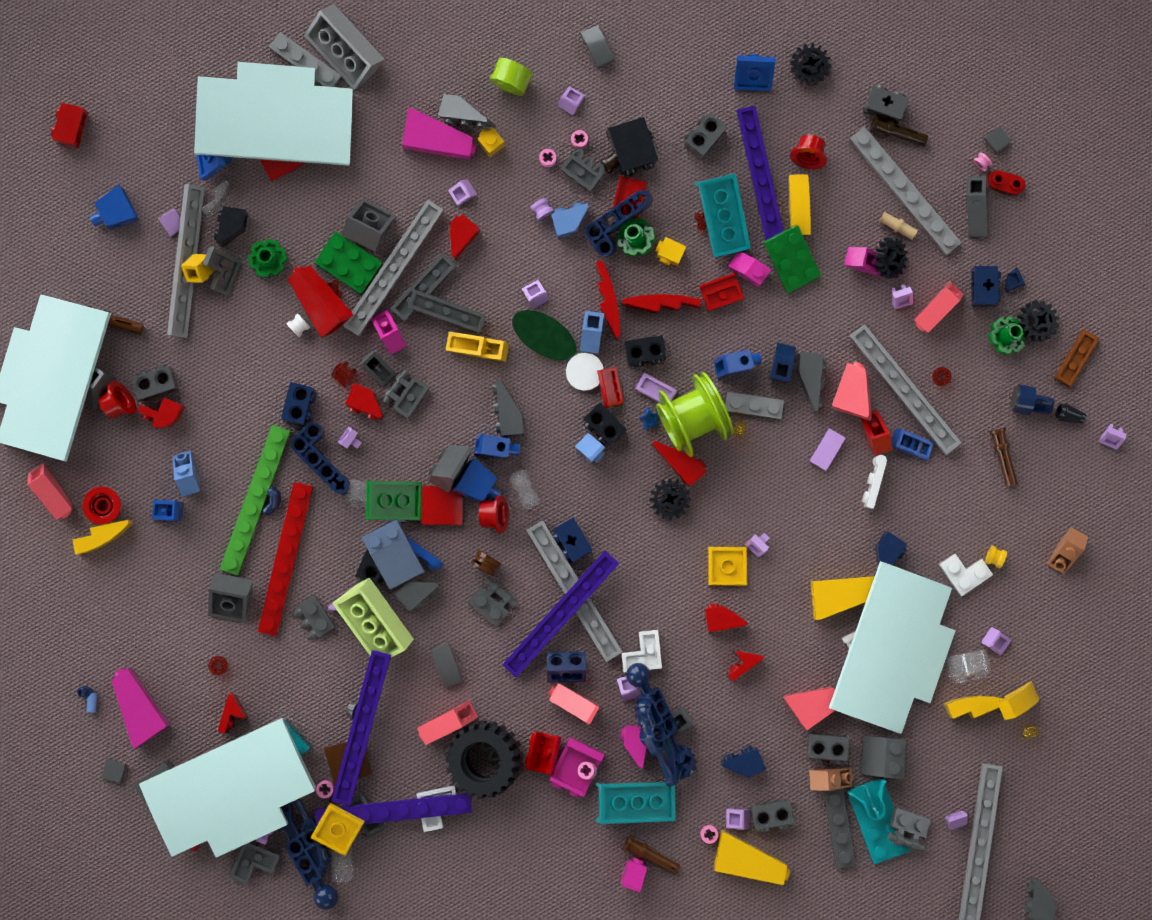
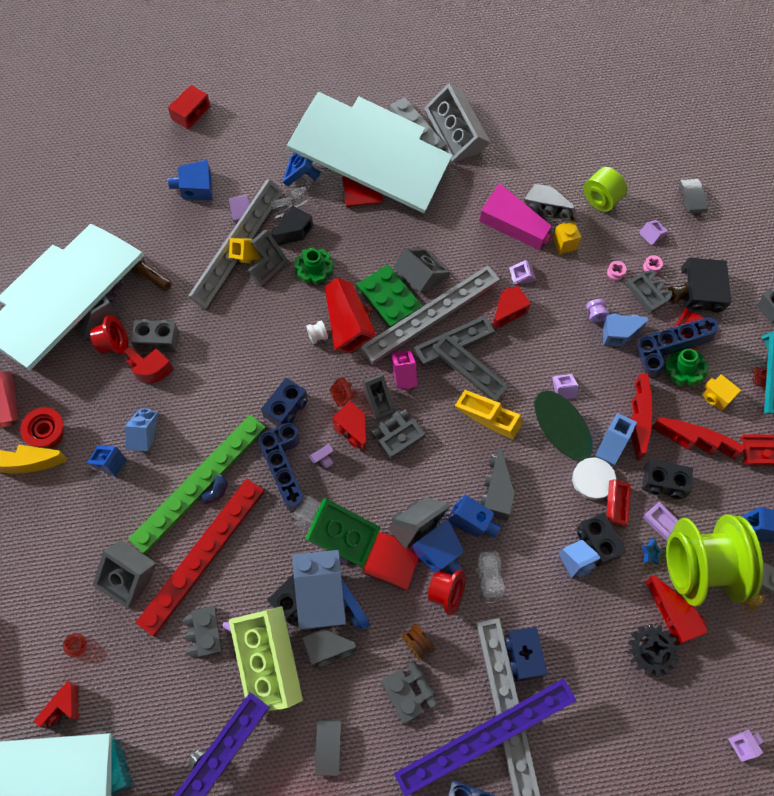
camera: 25 degrees right, 20 degrees down
(727, 565) = (701, 758): yellow tile -> none

